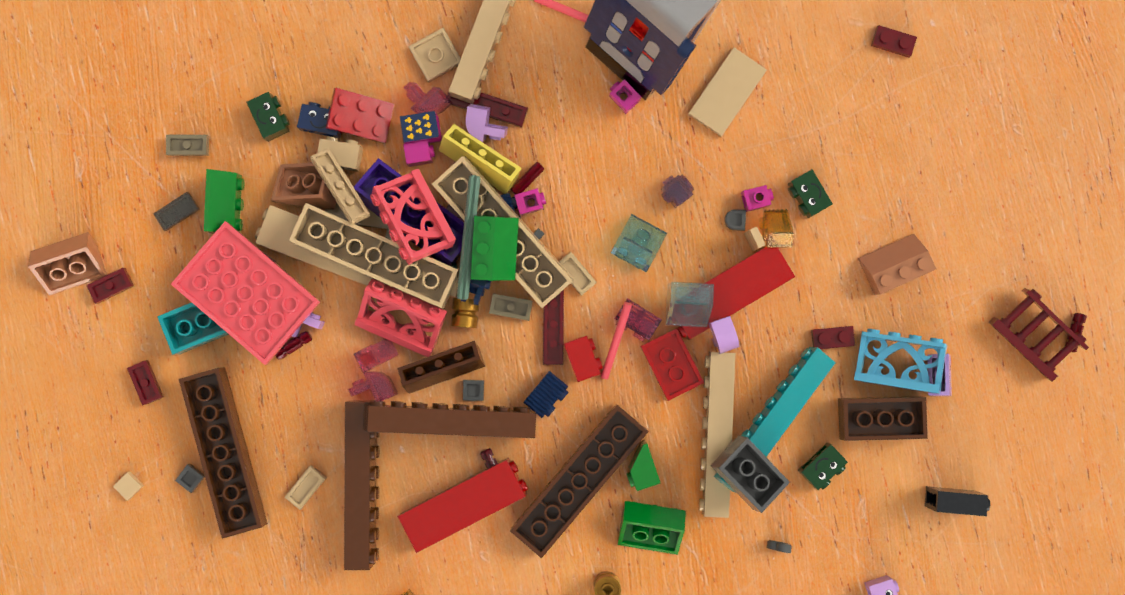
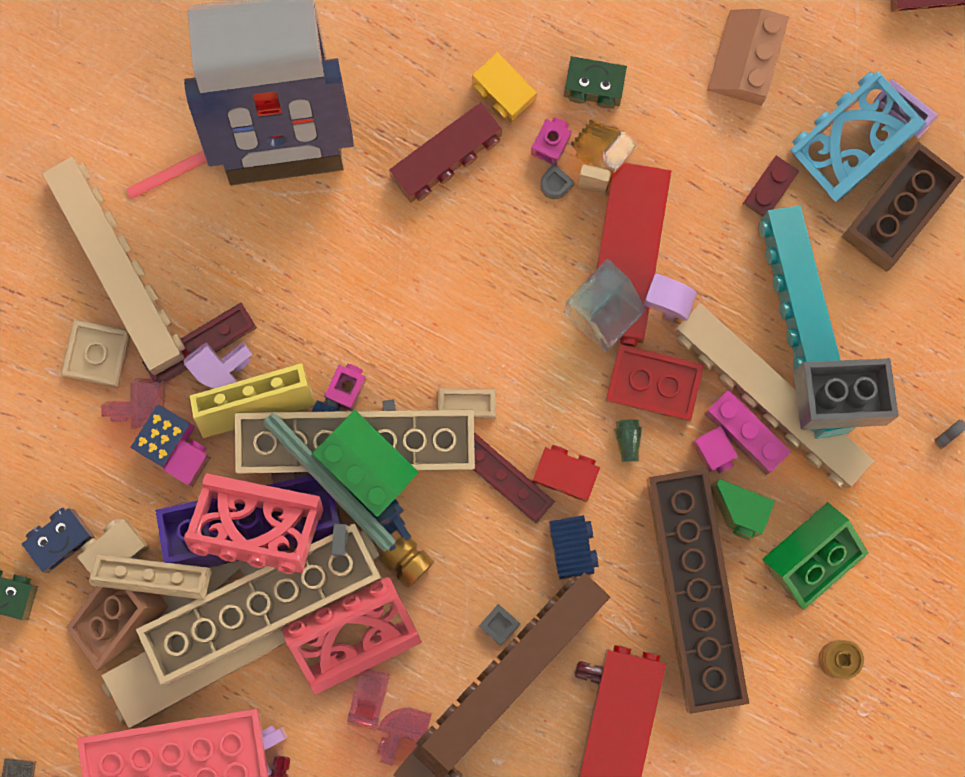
camera: 55 degrees left, 5 degrees down
(223, 200) = (50, 723): green slope -> none
(359, 115) = (90, 491): plate -> none
(441, 270) = (339, 542): none -> dark grey tile
(441, 367) = (444, 637): reddish brown brick -> none
(510, 307) = (443, 505): dark tan plate -> none
(527, 178) = (318, 368): dark red axle -> none
(616, 340) = (577, 419): coral bar -> none
(624, 88) = (327, 179): dark pink brick -> none
(630, 375) = (628, 439): none -> clear green cone
(638, 243) = (492, 307): clear light blue slope -> none
(640, 321) = (574, 379): clear pink brick -> none
(662, 427) = (715, 450): none -> dark pink brick
(677, 190) = (470, 218): brick -> none
(687, 436) = (747, 432): none -> dark pink brick
(702, 147) = (446, 152): none -> dark red brick
(727, 92) = (410, 76): tan tile -> none
(763, 147) = (503, 88): none -> yellow brick
(823, 466) = (902, 314): dark green brick -> none

